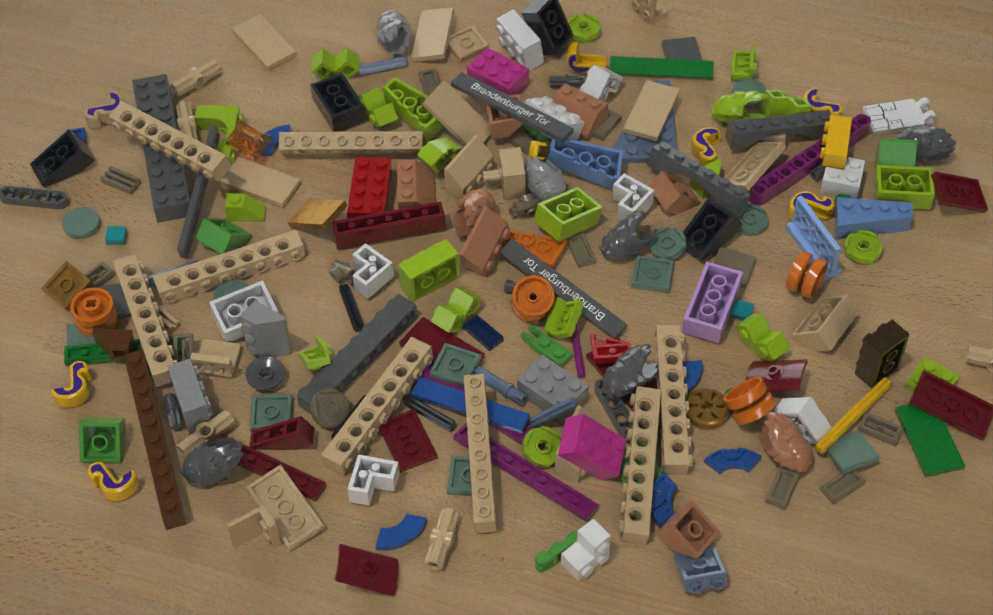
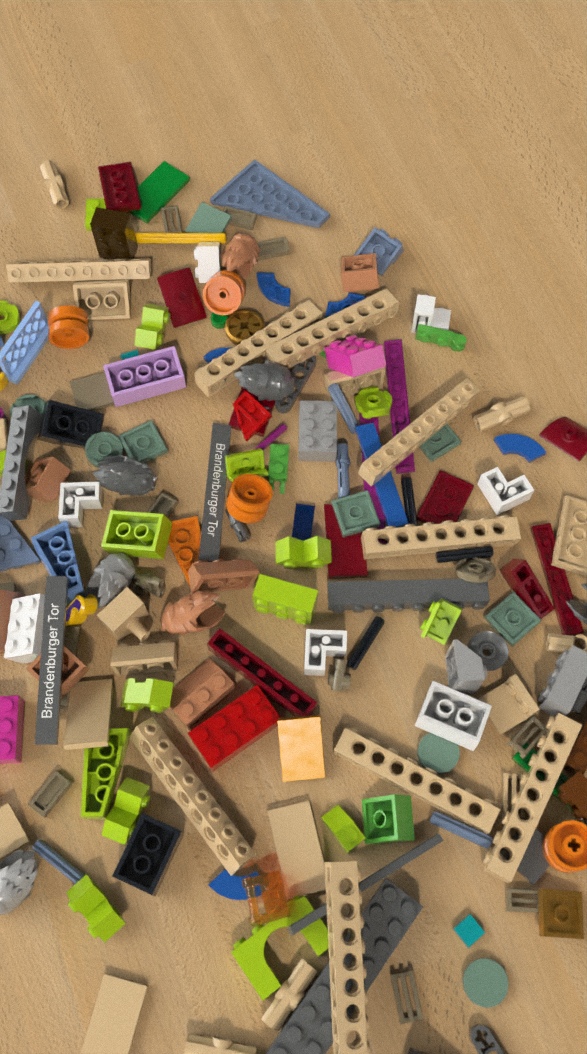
camera: 130 degrees left, 15 degrees up
(855, 522) = (268, 195): none -> sand blue wing
(873, 312) = (79, 270): none -> tan brick

